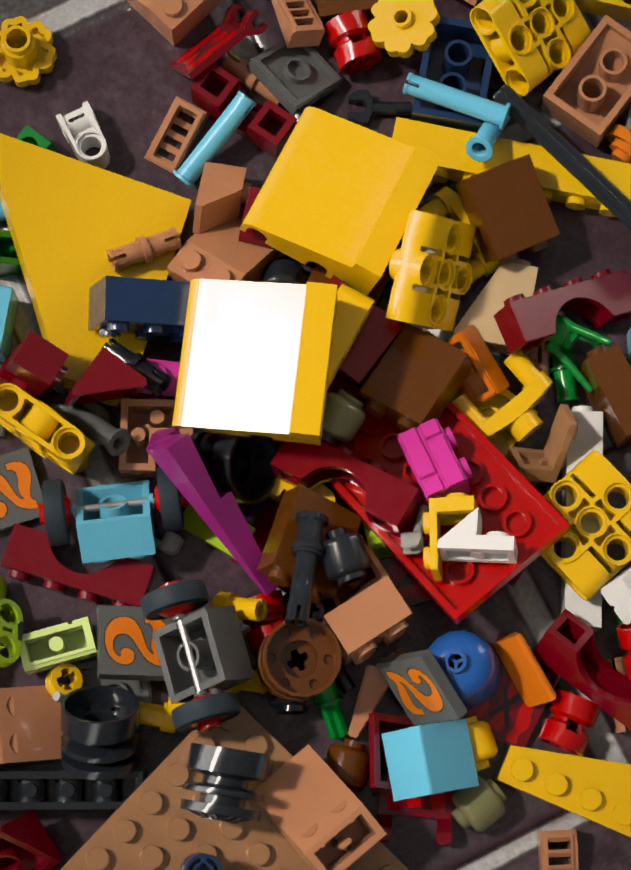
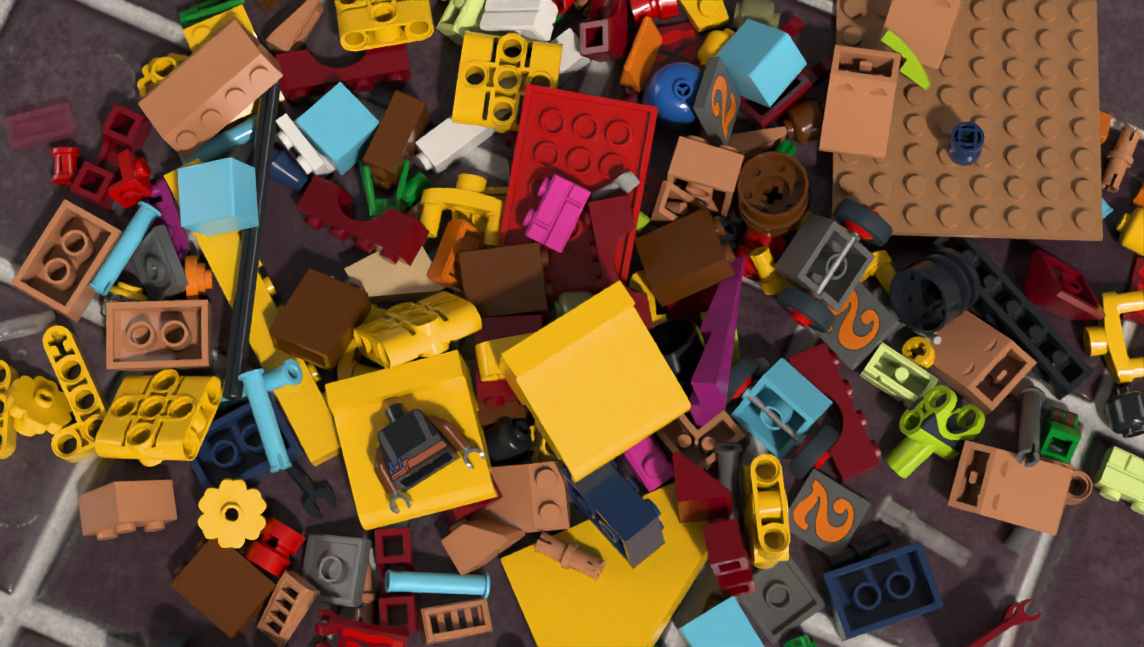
camera: 125 degrees left, 0 degrees up
(155, 378) = (663, 483): black pin -> none
(225, 782) = (897, 170): black wheel -> none
(307, 551) = (696, 241): black pin -> none
(325, 181) = (415, 449): none -> torso
(345, 557) = (678, 217): black head -> none
(443, 512) = (580, 169): yellow bracket -> none
(468, 544) = (599, 139): white slope -> none
(546, 463) = (482, 153): medium nougat bracket -> none

